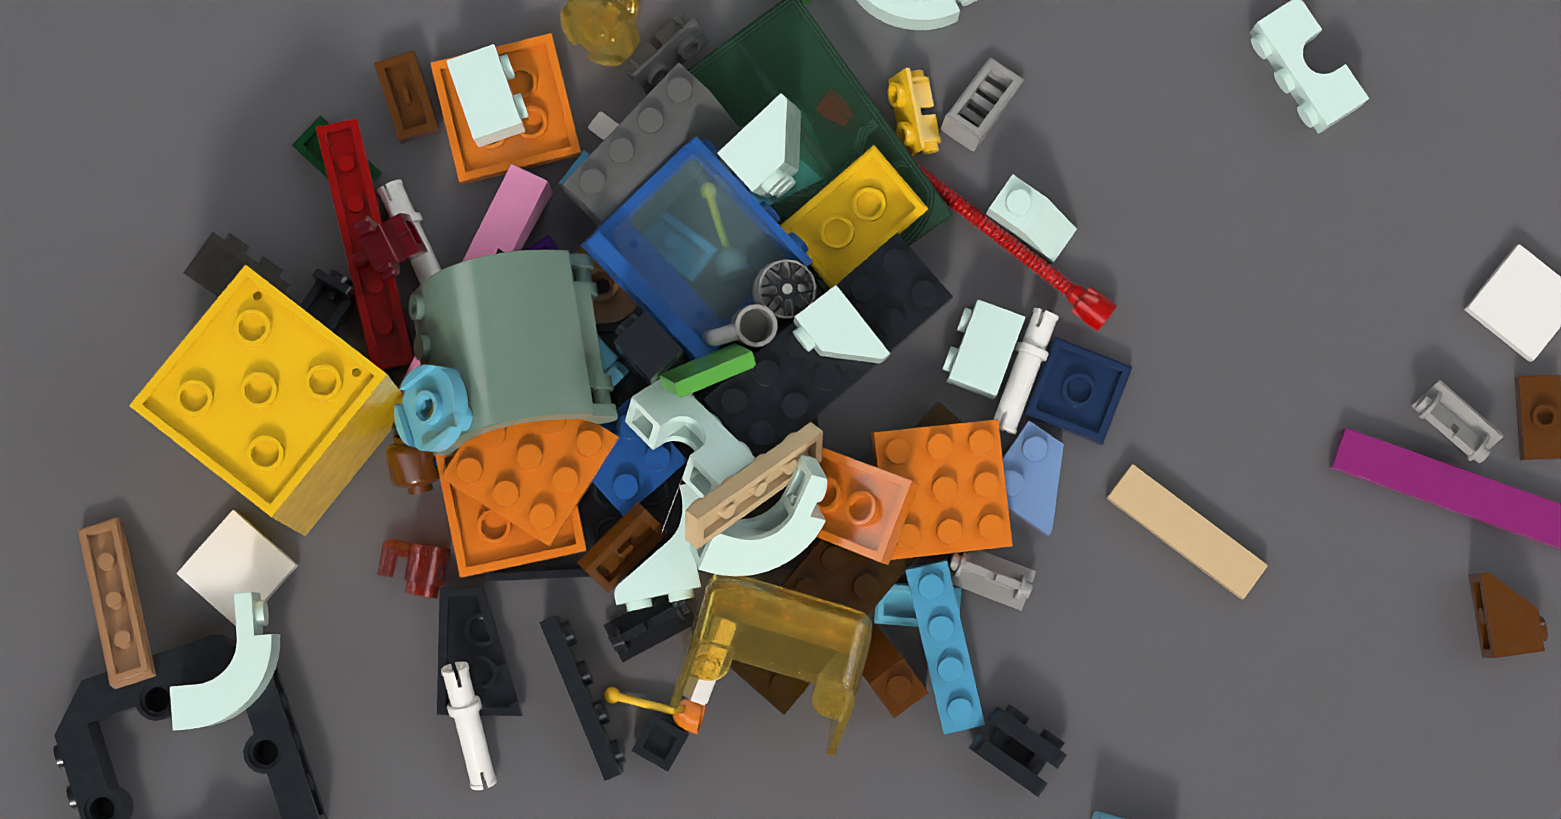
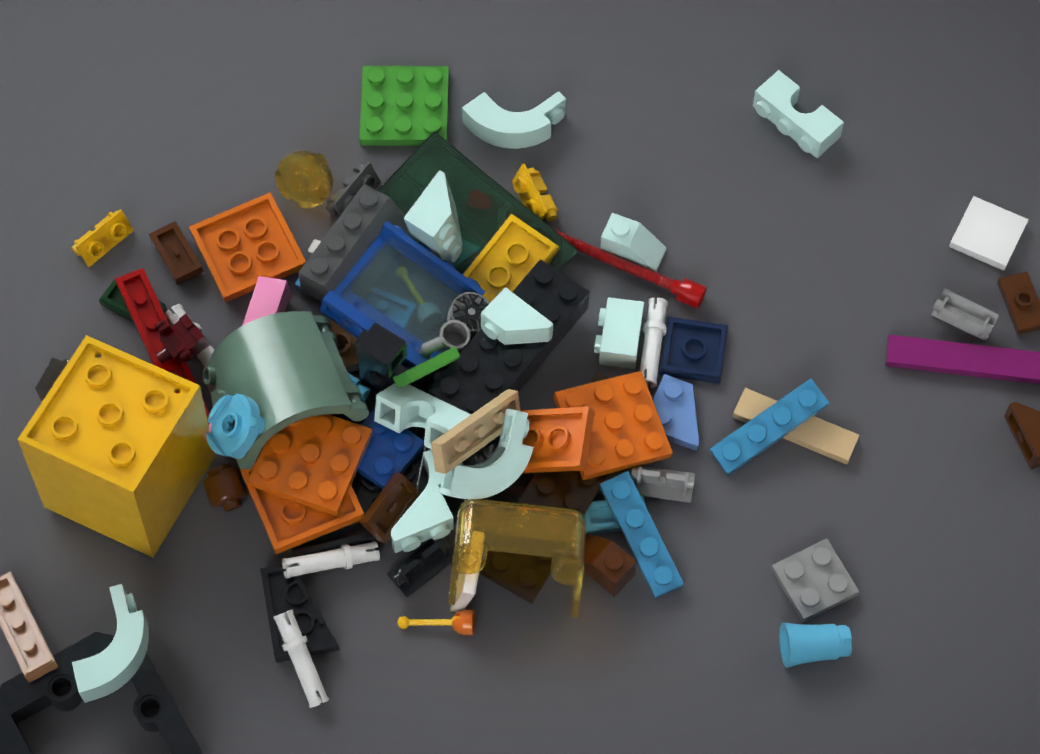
camera: 10 degrees left, 20 degrees down
(236, 561) = (91, 590): white tile -> none
(297, 60) = (105, 237): none -> yellow hinge
(424, 566) = (246, 559): clear red piece -> none
(487, 95) = (233, 234): light aqua brick -> none
(533, 595) = (344, 557): none -> white pin
(590, 712) = (390, 635): black plate -> none
(660, 742) = (446, 645): black plate -> none
(968, 126) = (573, 198): light grey slope -> none
(1012, 724) = (706, 580): black brick -> none
(1150, 531) = (769, 427): none -> dark azure plate
(1156, 753) = (814, 580): none -> light grey plate

